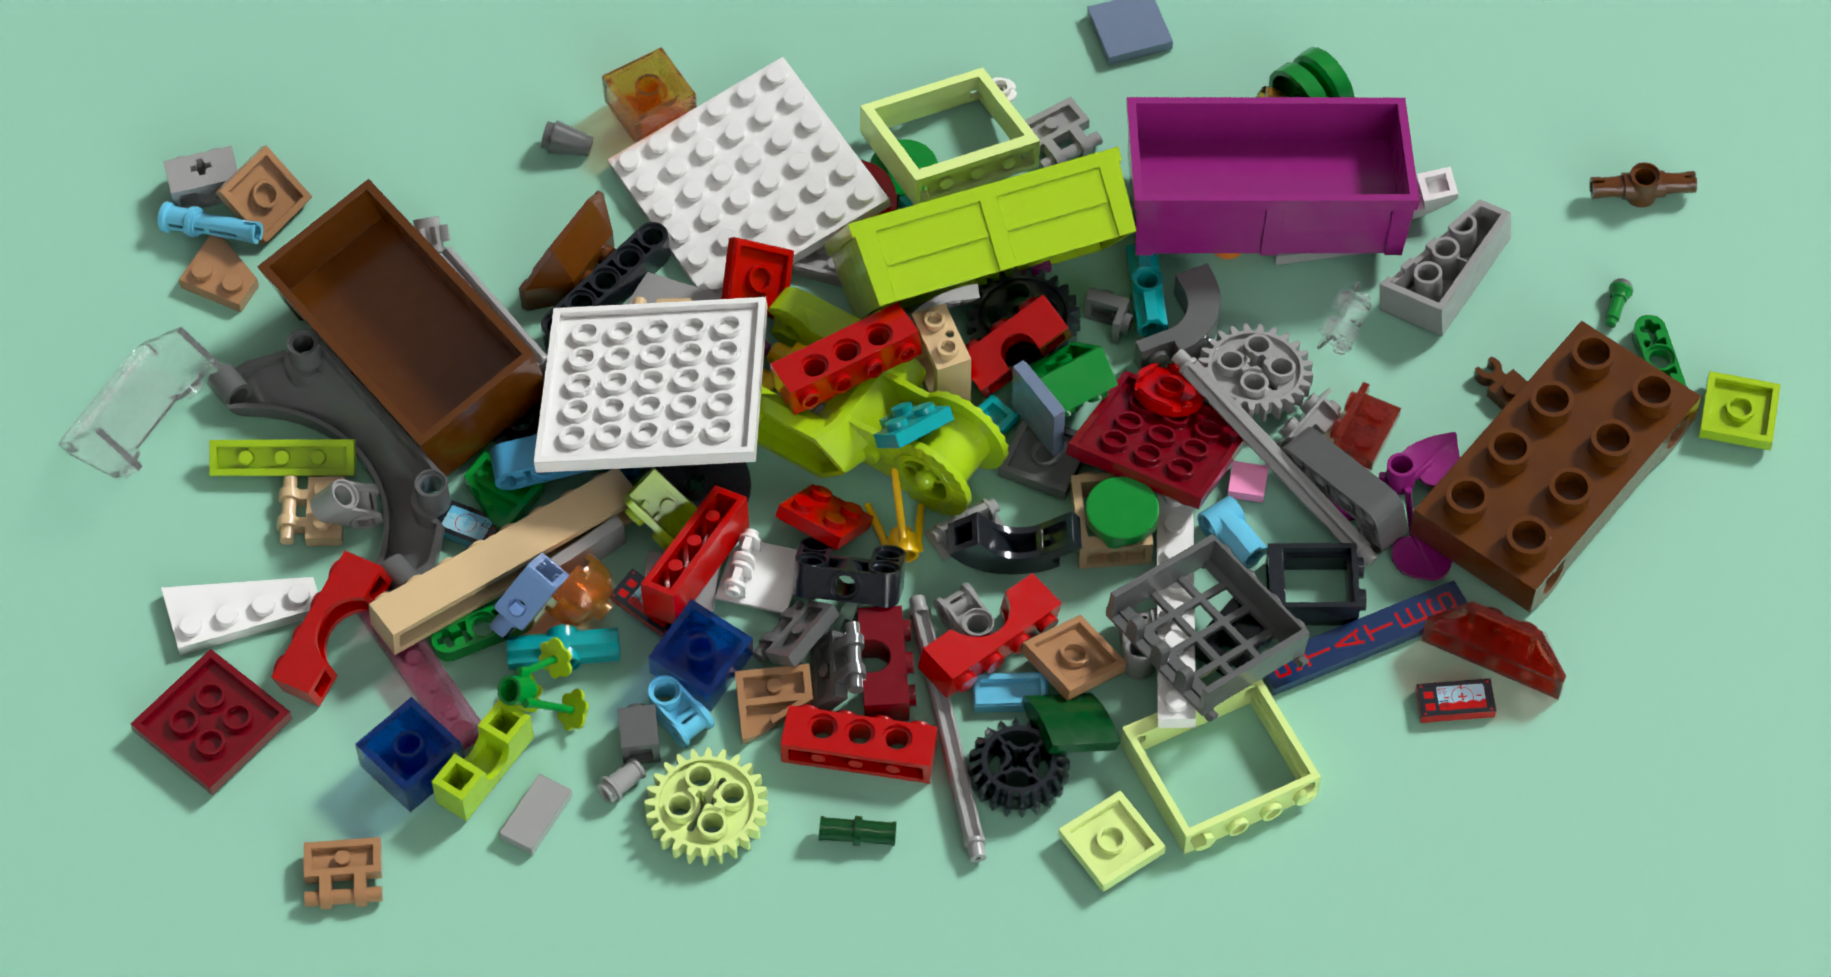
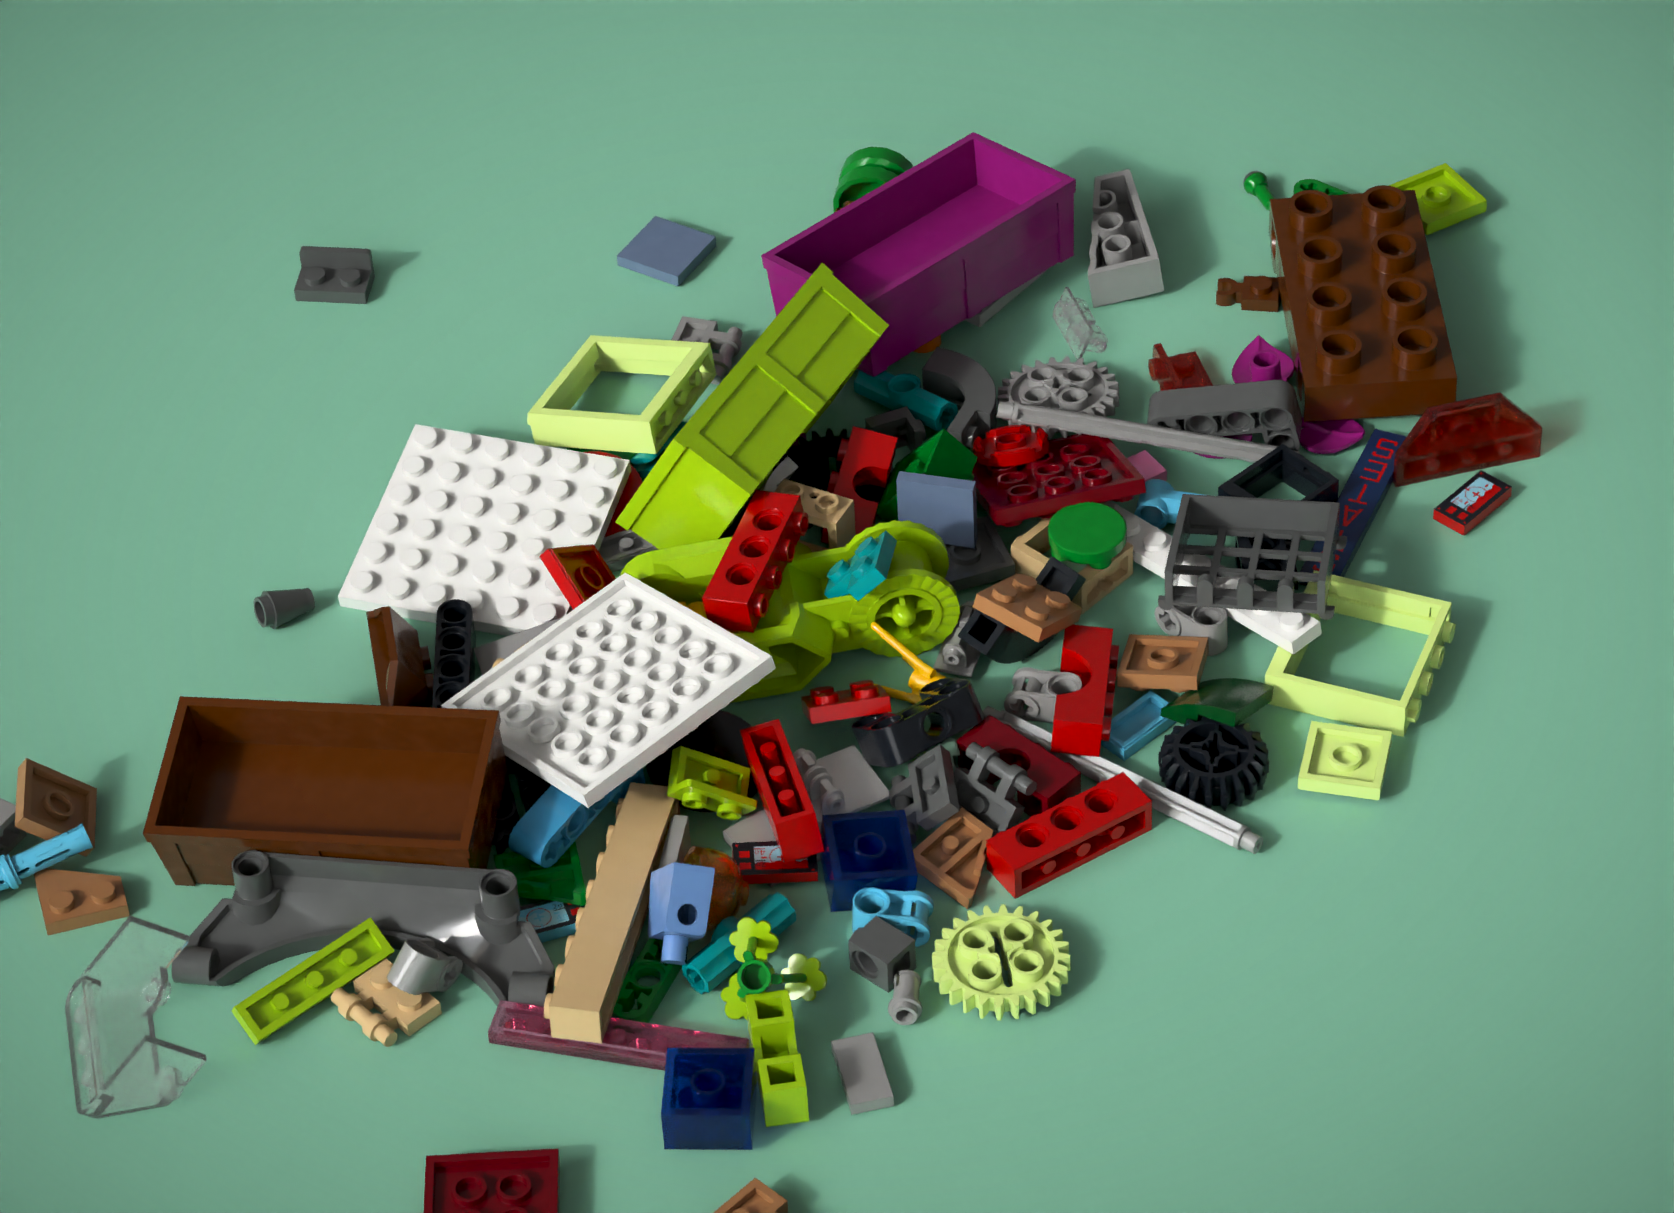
camera: 40 degrees left, 15 degrees down
(230, 611) = (403, 1125): white wing -> none
(348, 591) = (534, 1101): red arch -> none
(647, 94) = (324, 525): clear orange brick -> none
(857, 831) = (1142, 893): dark green pin -> none
(1008, 541) = (1028, 607): none -> medium nougat plate
(1316, 413) = (1135, 396): light grey hinge -> none
(1643, 184) = (1189, 109): reddish brown pin -> none

